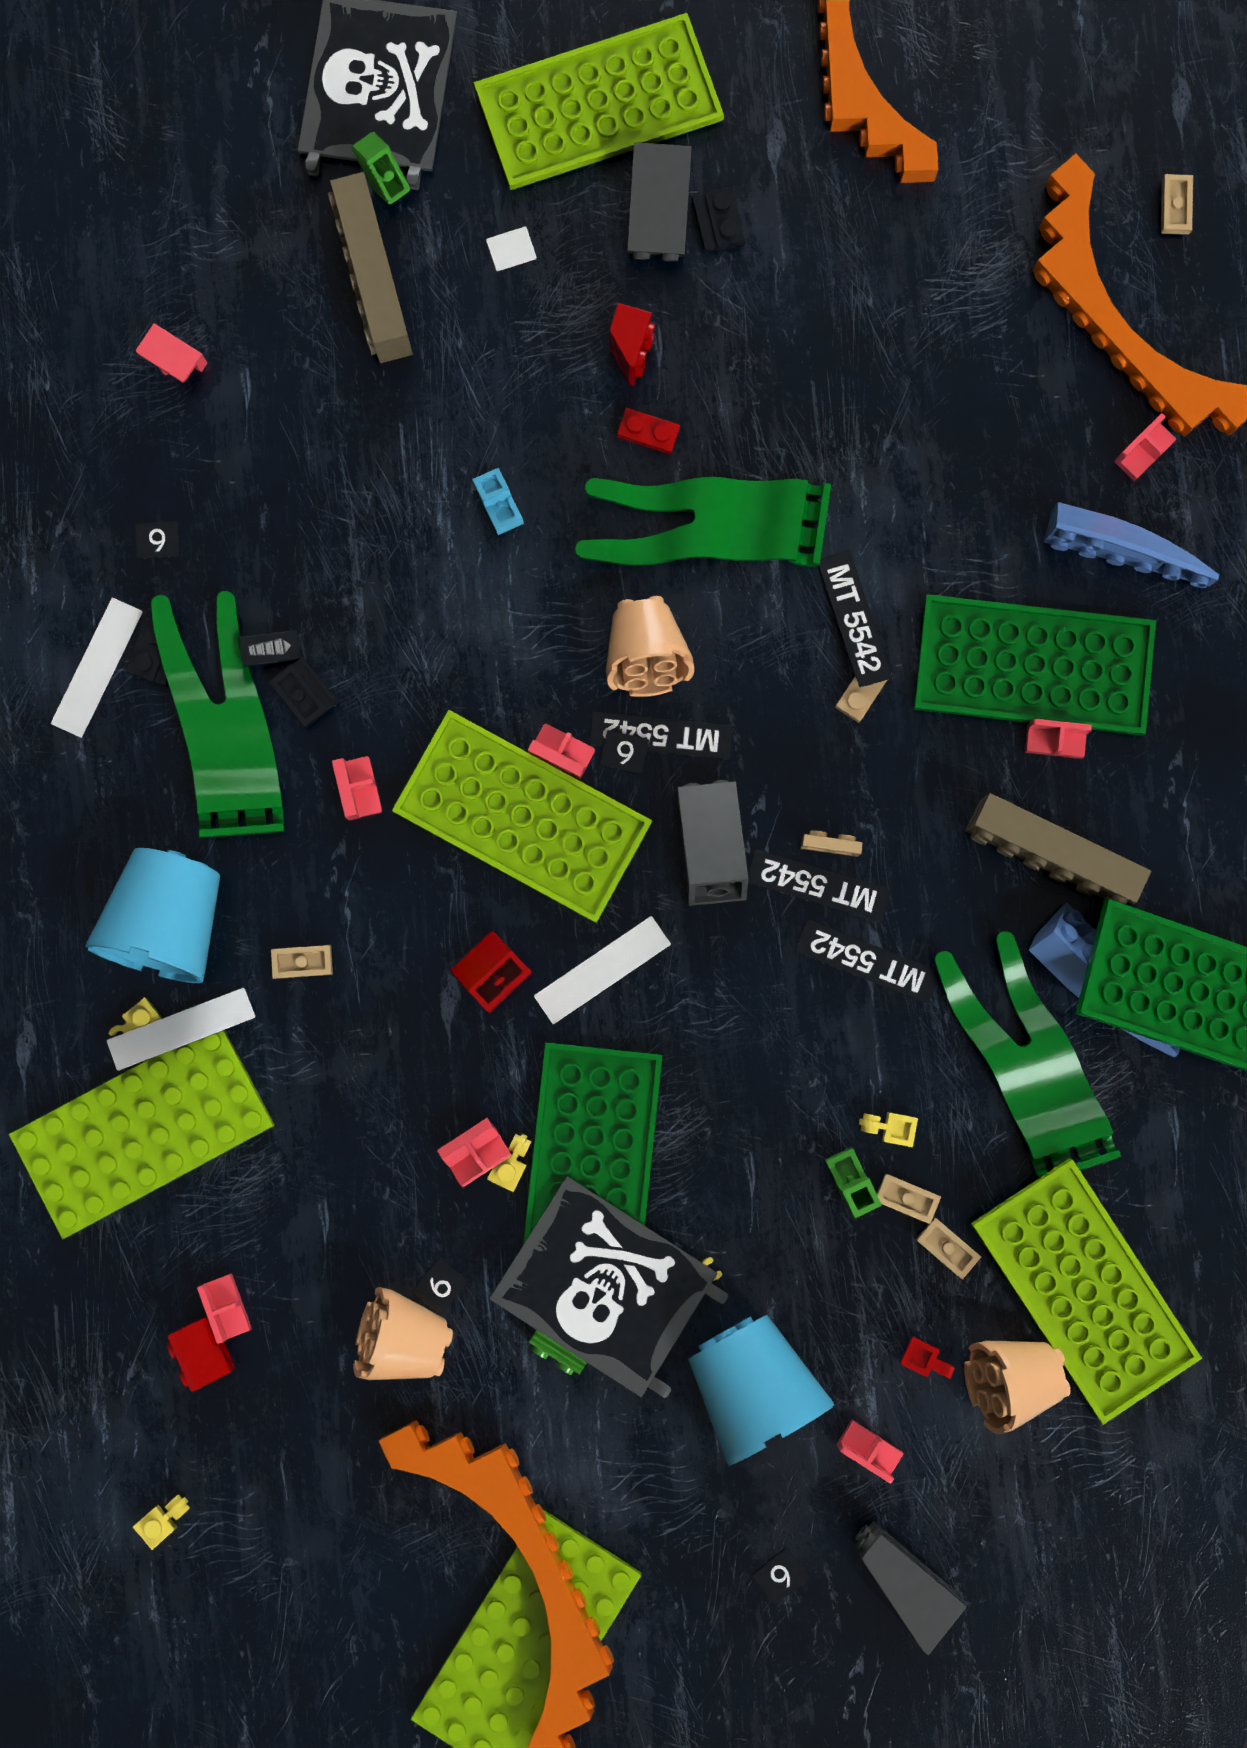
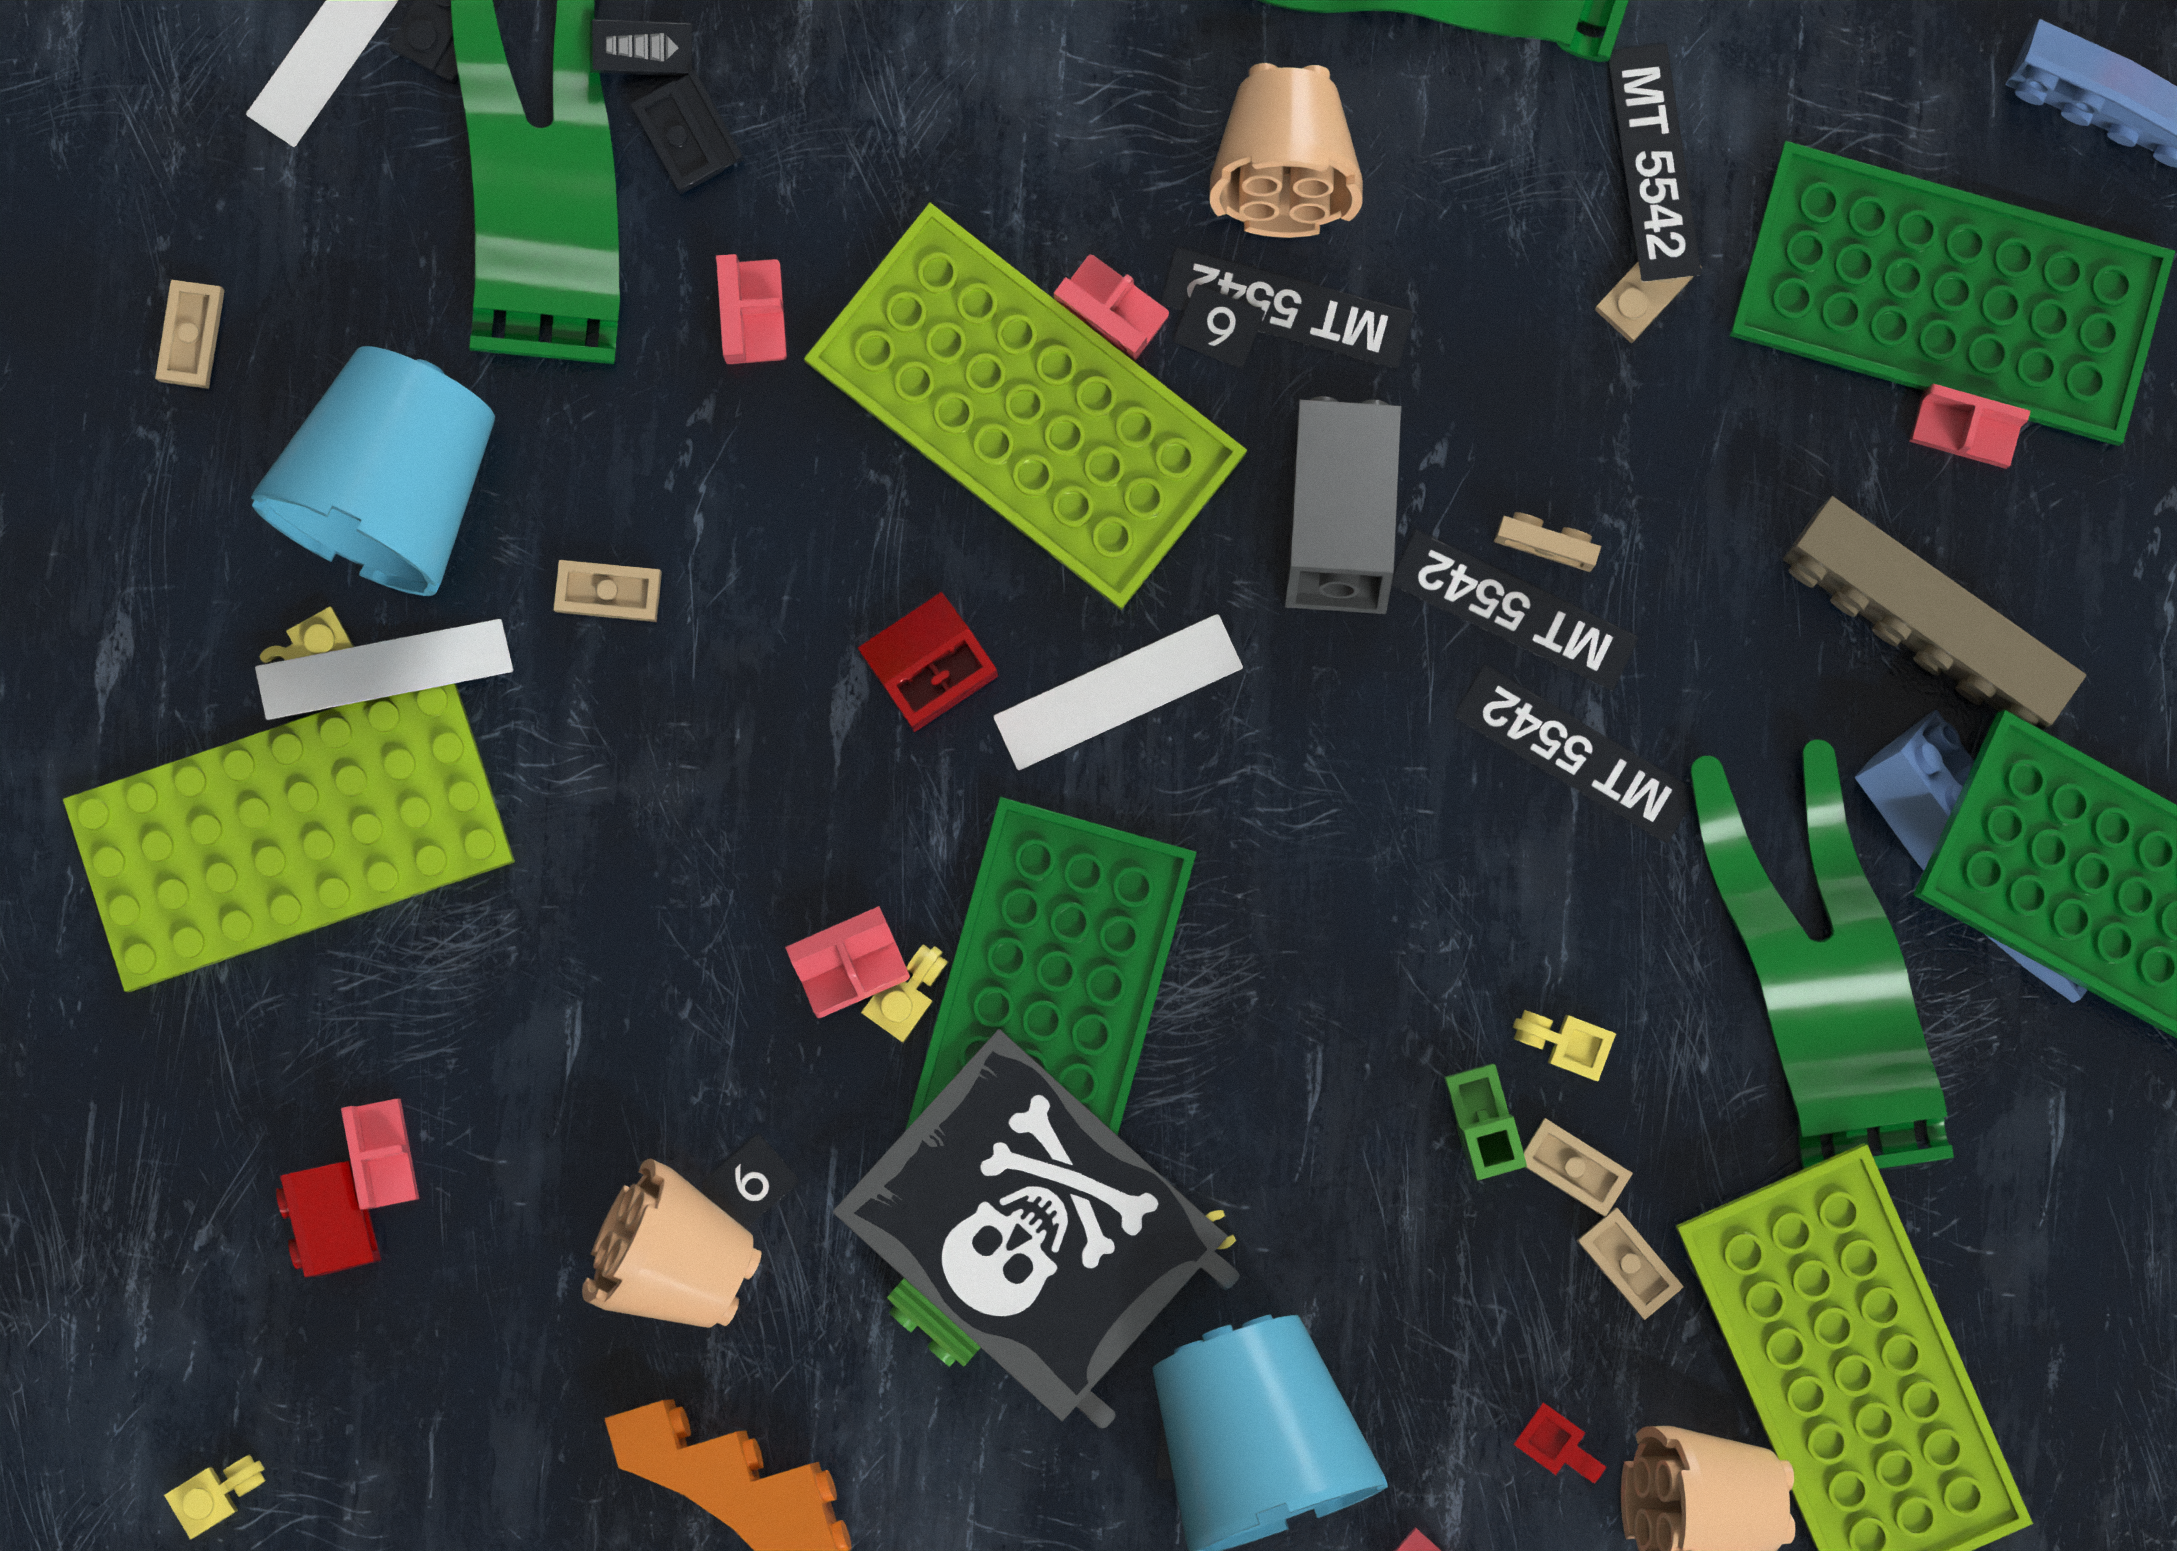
camera: 15 degrees right, 0 degrees up
(38, 854) = (190, 334): none -> tan plate

